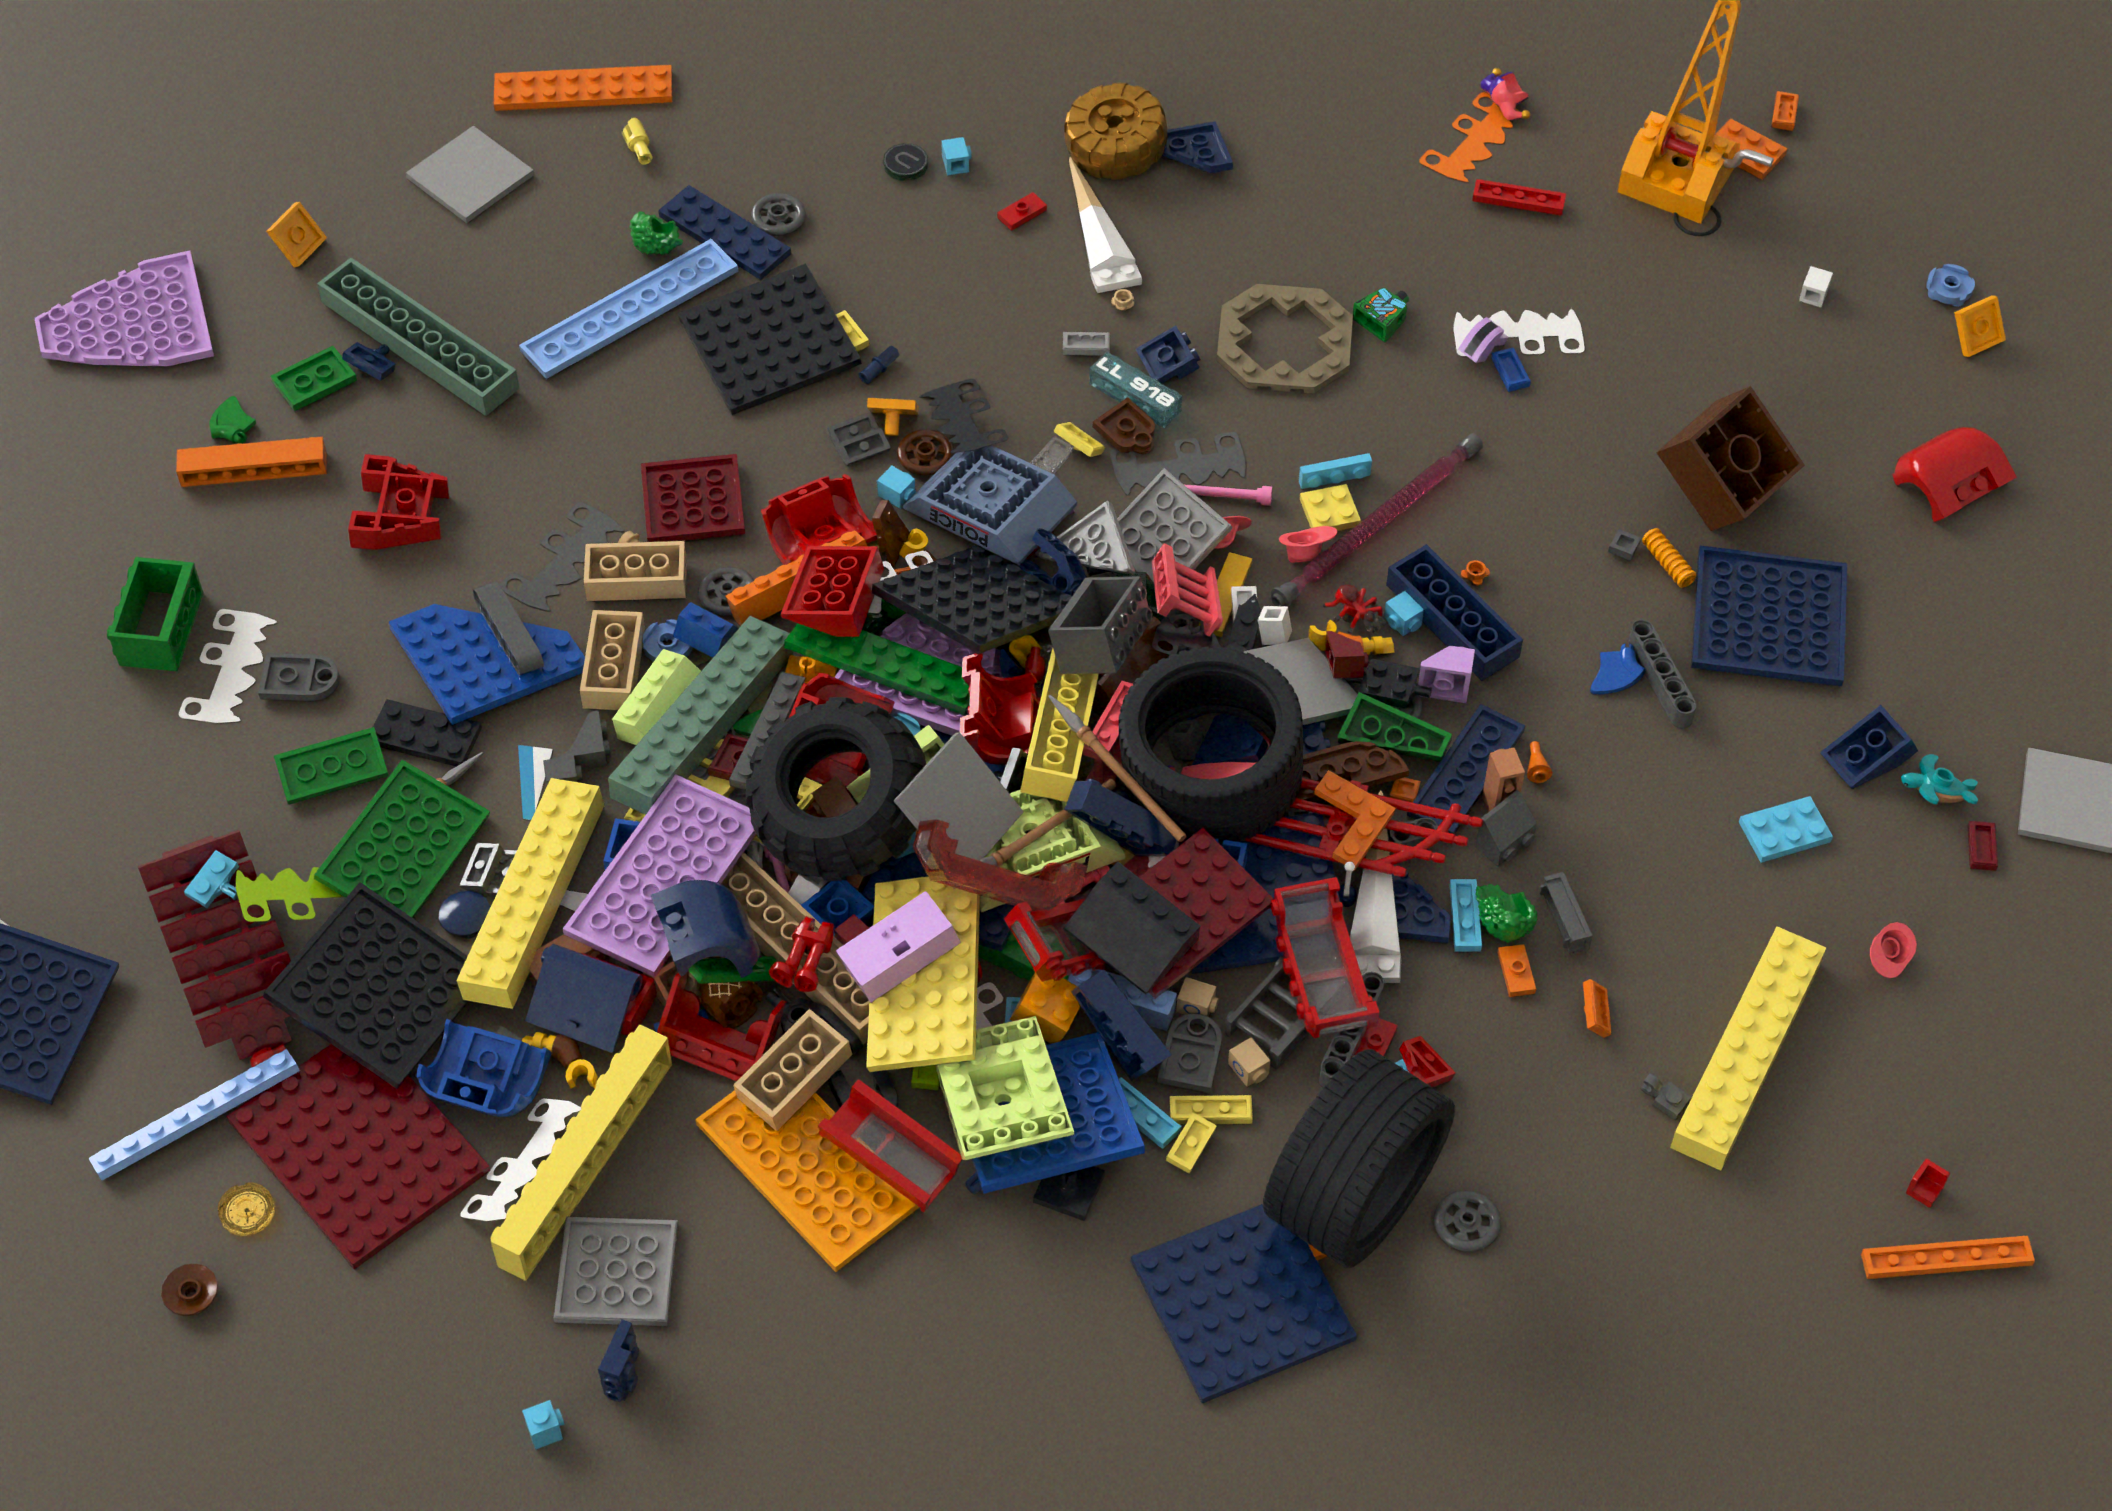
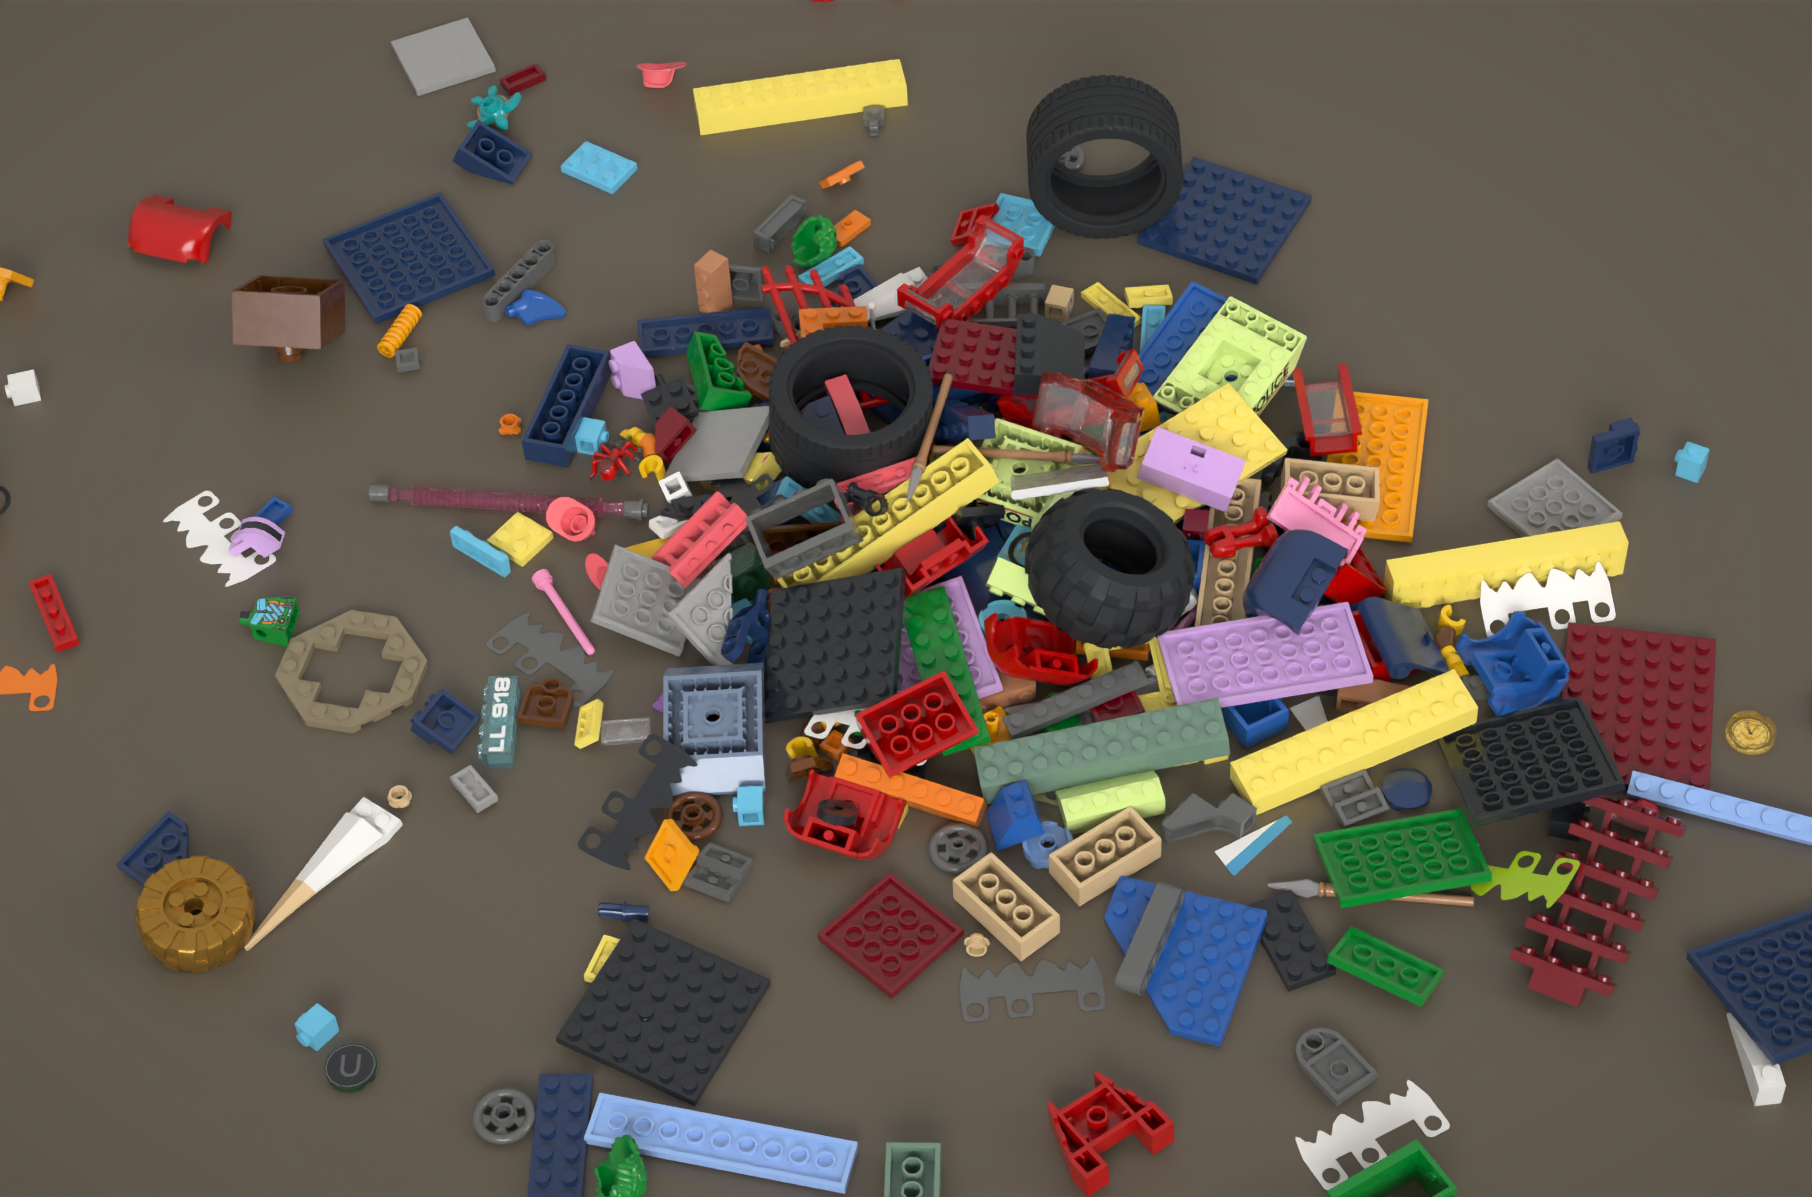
camera: 125 degrees left, 5 degrees down
(213, 880) = (1571, 921): medium azure plate -> none
(749, 1011) = (1297, 512): none -> bright pink hinge
(824, 501) = (837, 812): none -> black piece
(1022, 211) = (345, 938): red plate -> none
(1096, 688) = (865, 499): none -> black connector
(1538, 768) = (666, 299): orange cone -> none

